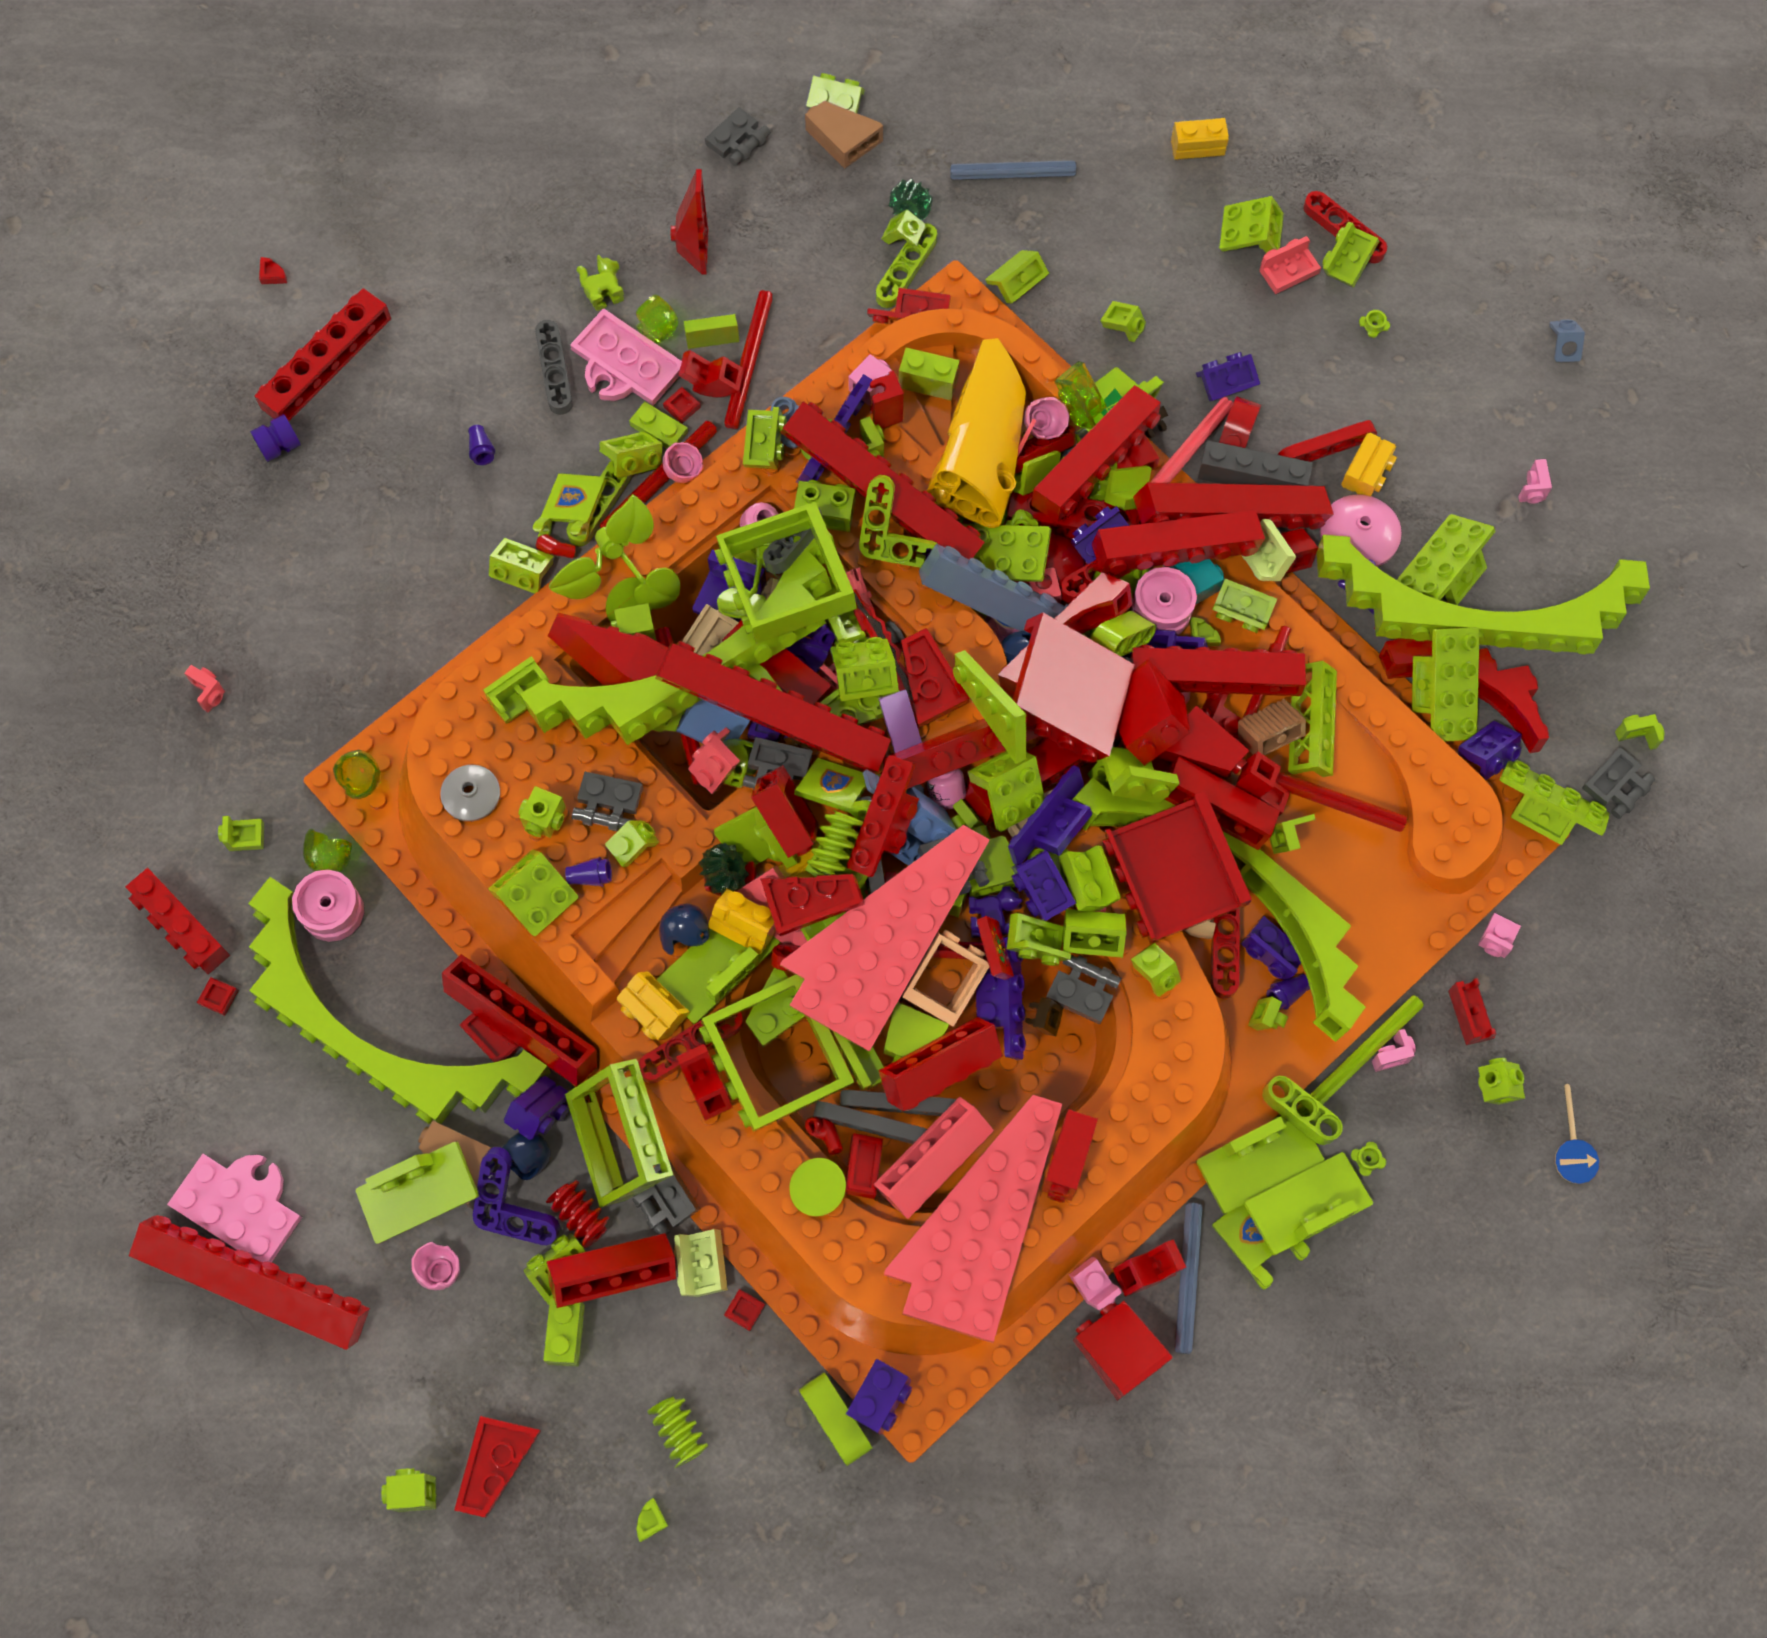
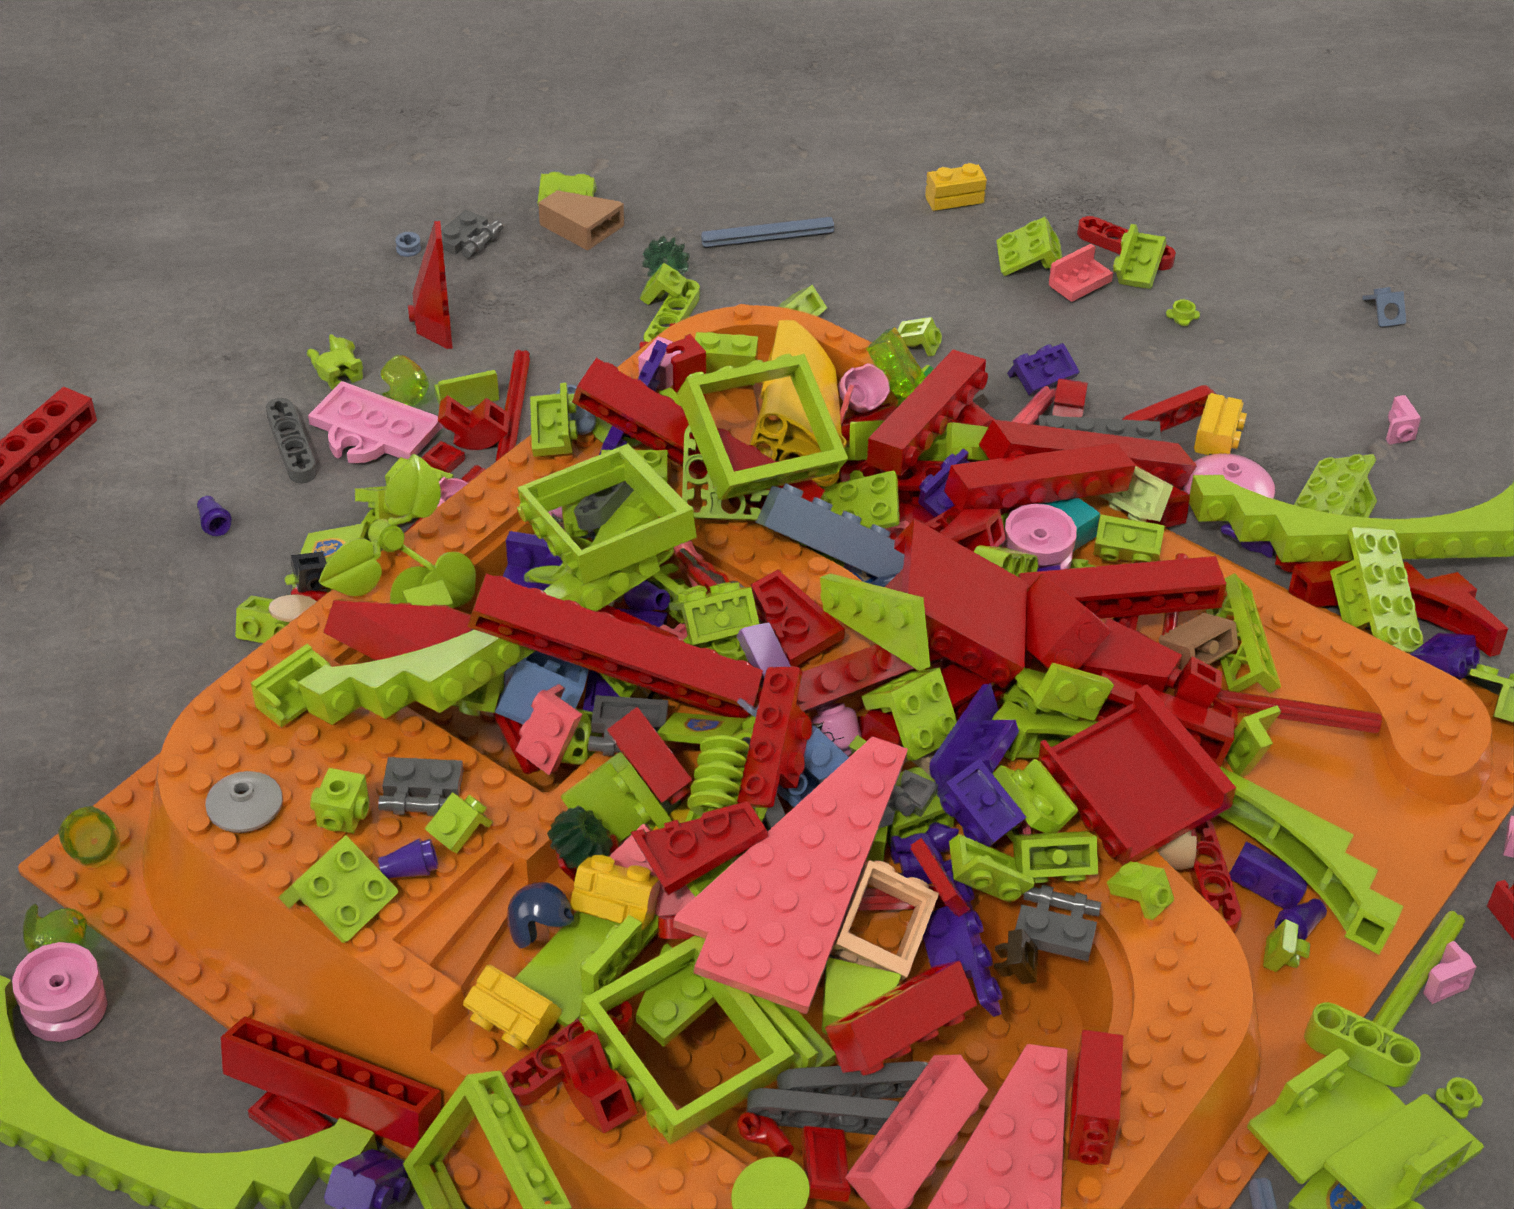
camera: 10 degrees left, 25 degrees down
(540, 561) = (289, 606): none -> tan piece
(554, 526) = (307, 570): none -> black bracket
(675, 140) = (408, 238): none -> sand blue bush
(885, 499) = (759, 478): none -> lime window
(996, 863) = (920, 791): none -> flat silver tile

